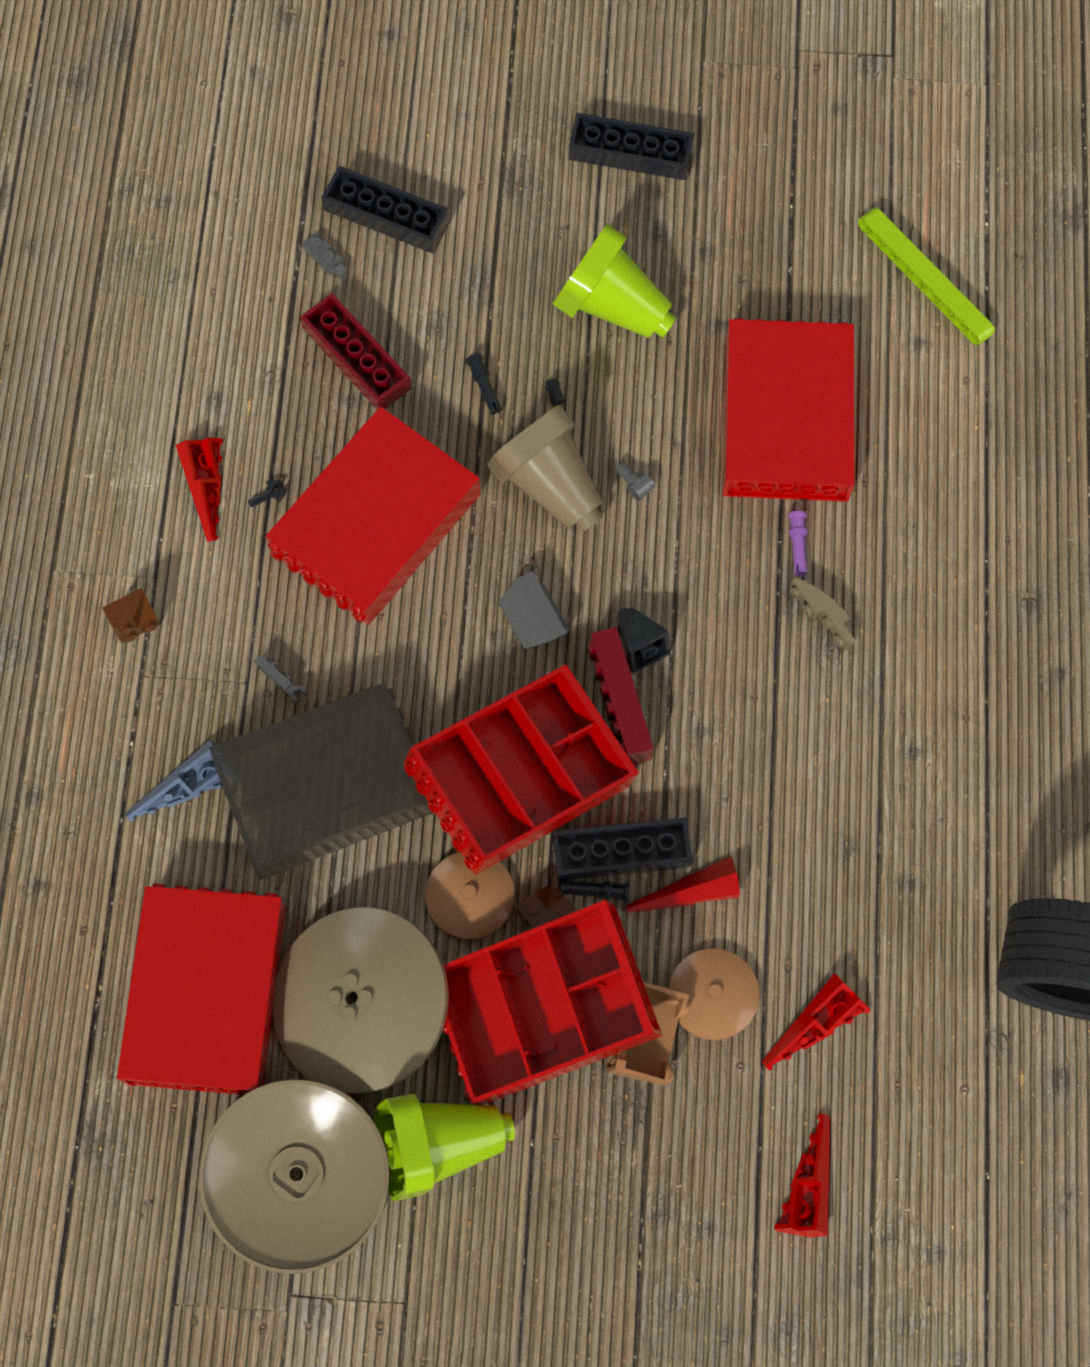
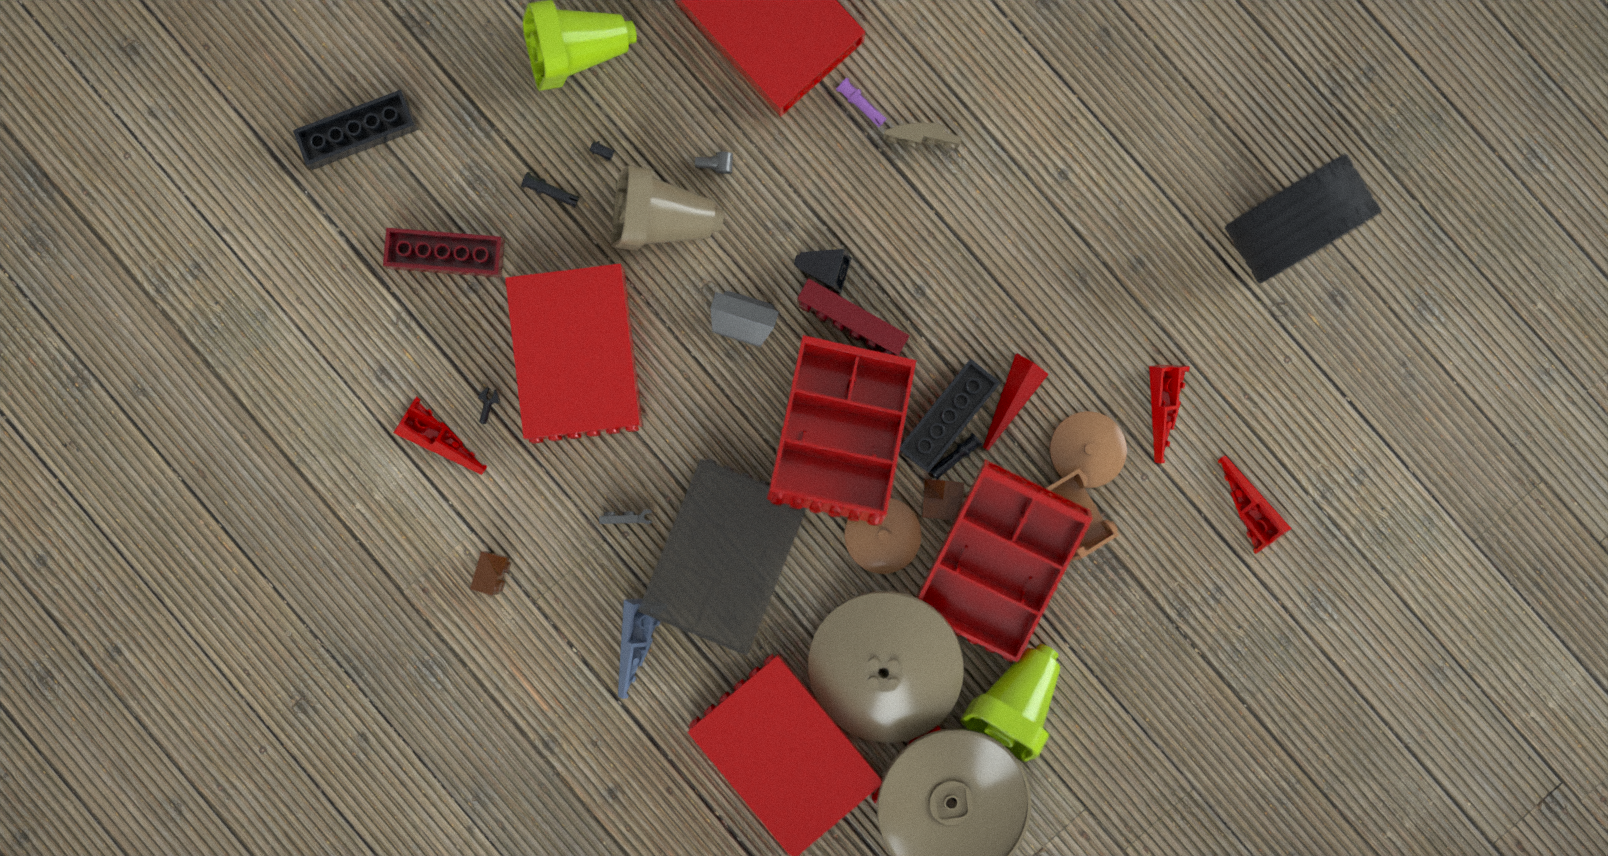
camera: 45 degrees left, 15 degrees up
(325, 256) = (348, 202): dark grey hinge -> none

